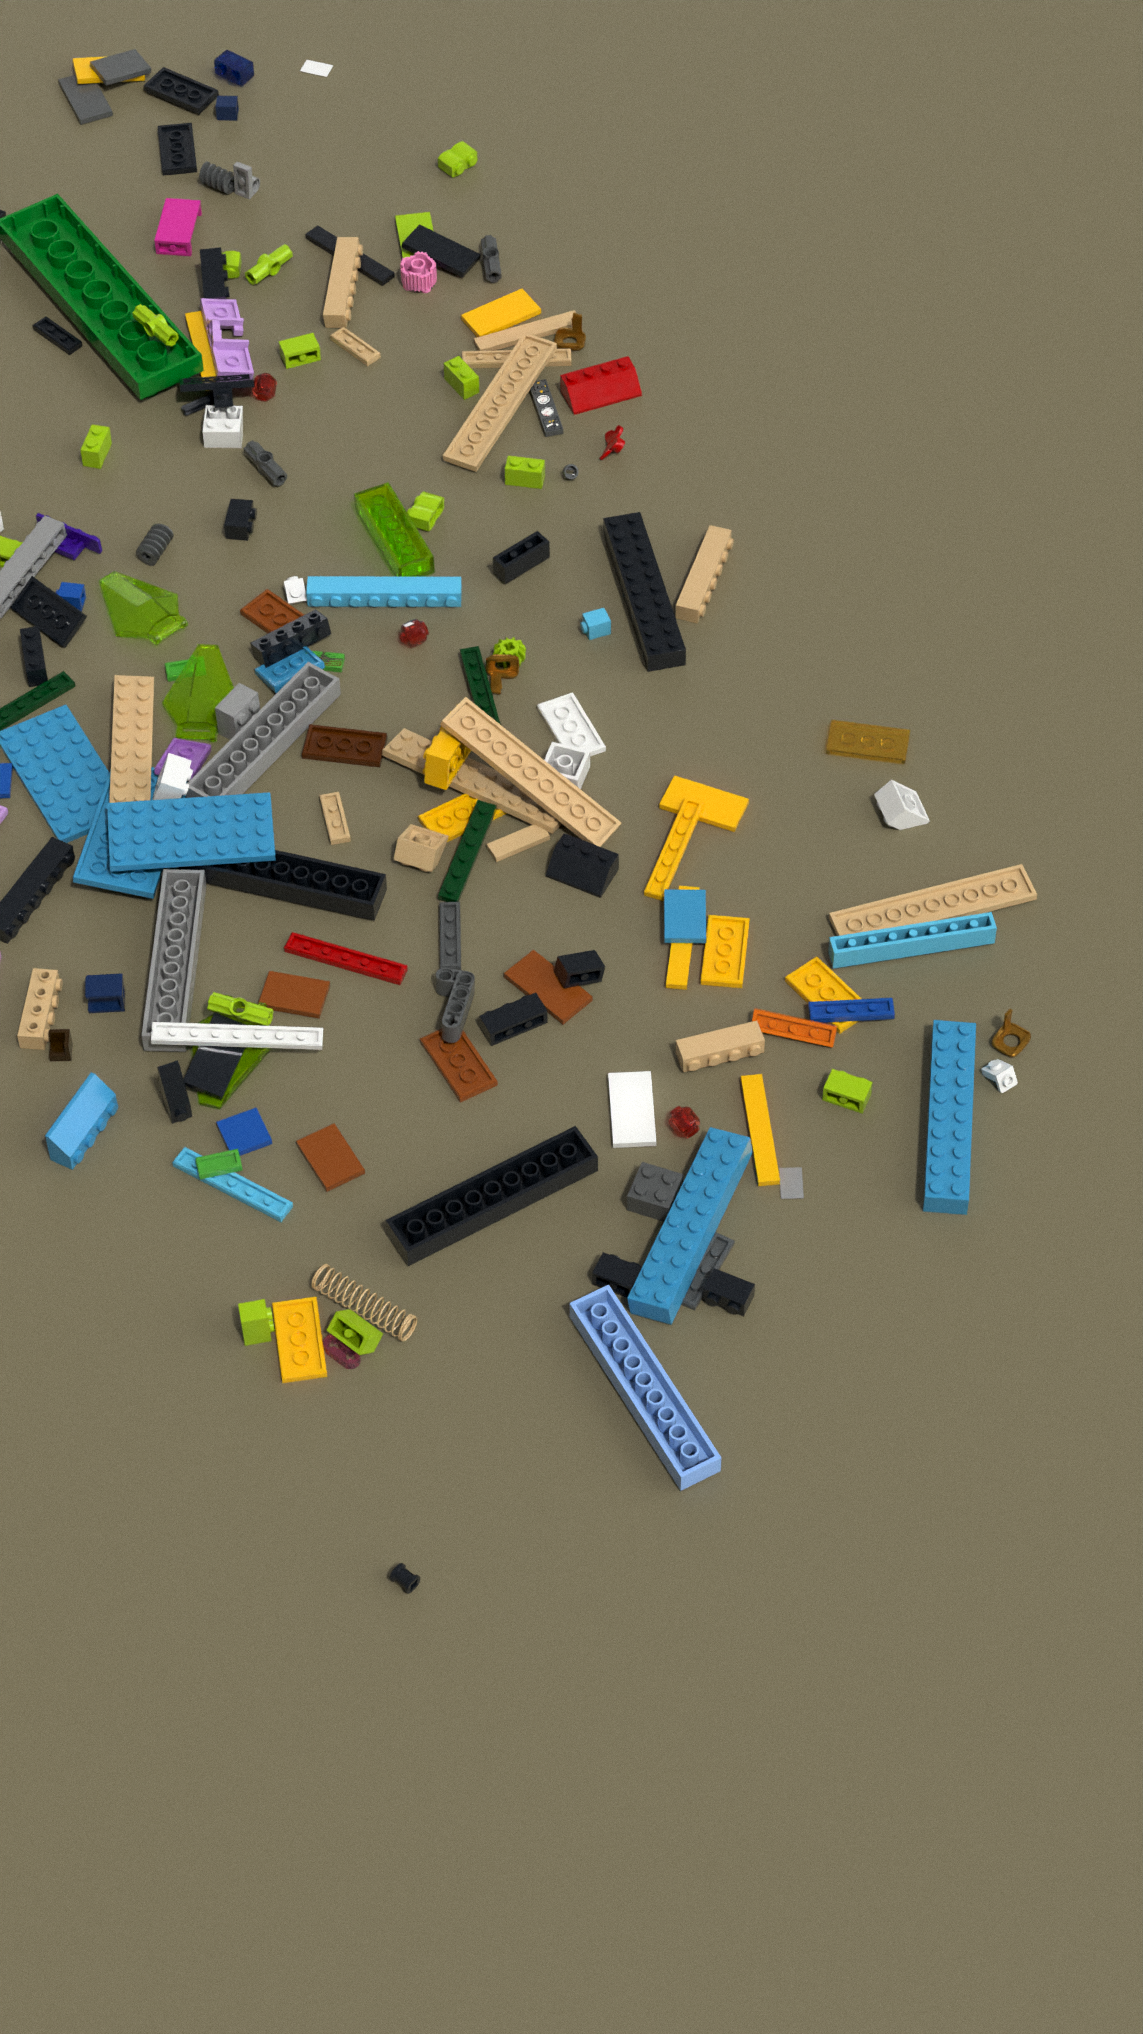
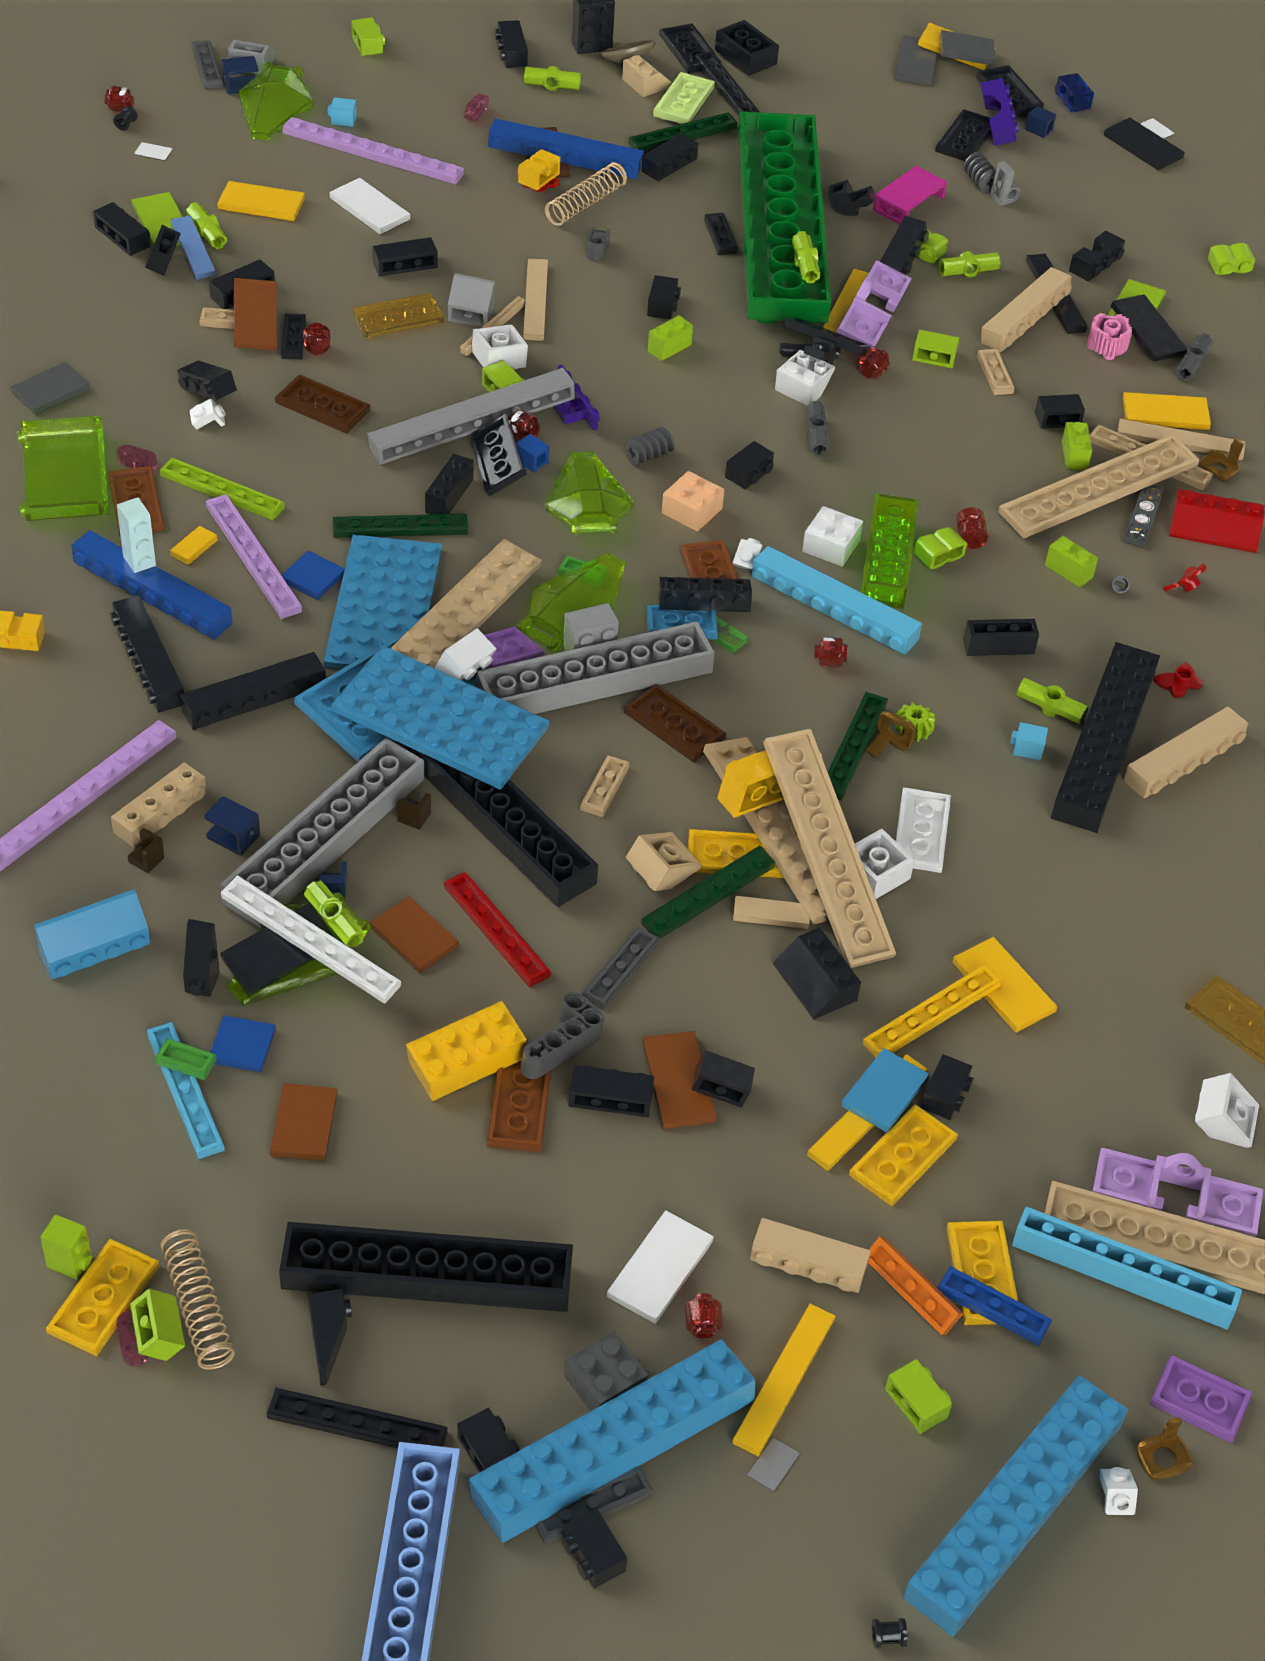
camera: 30 degrees right, 5 degrees down
(49, 576) = (524, 424): none -> clear red head
(61, 414) = (663, 297): none -> black brick
(136, 256) = (849, 201): none -> black brick
(179, 103) = (1002, 124): none -> dark purple arch
(204, 991) = (336, 881): none -> dark blue panel
(221, 911) = (413, 812): none -> dark brown panel
(222, 570) = (692, 501): none -> light nougat brick
(318, 87) = (1144, 143): none -> black tile
(344, 543) = (832, 536): none -> white brick
(357, 215) = (1105, 251): none -> black arch
(400, 1048) = (466, 1050): none -> yellow brick
(427, 355) = (1056, 410): none -> black brick
(437, 483) = (972, 527): none -> clear red wheel
(458, 1267) = (329, 1325): none -> black slope
(521, 1313) = (352, 1420): none -> black tile
(589, 585) = (1052, 701): none -> lime piece
(661, 523) = (1179, 681): none -> red animal
(721, 892) = (947, 1086): none -> black brick
(879, 881) = (1220, 1201): none -> lavender plate
(931, 1233) = (889, 1633): none -> black bush
(1007, 991) = (1201, 1398): none -> medium lavender tile

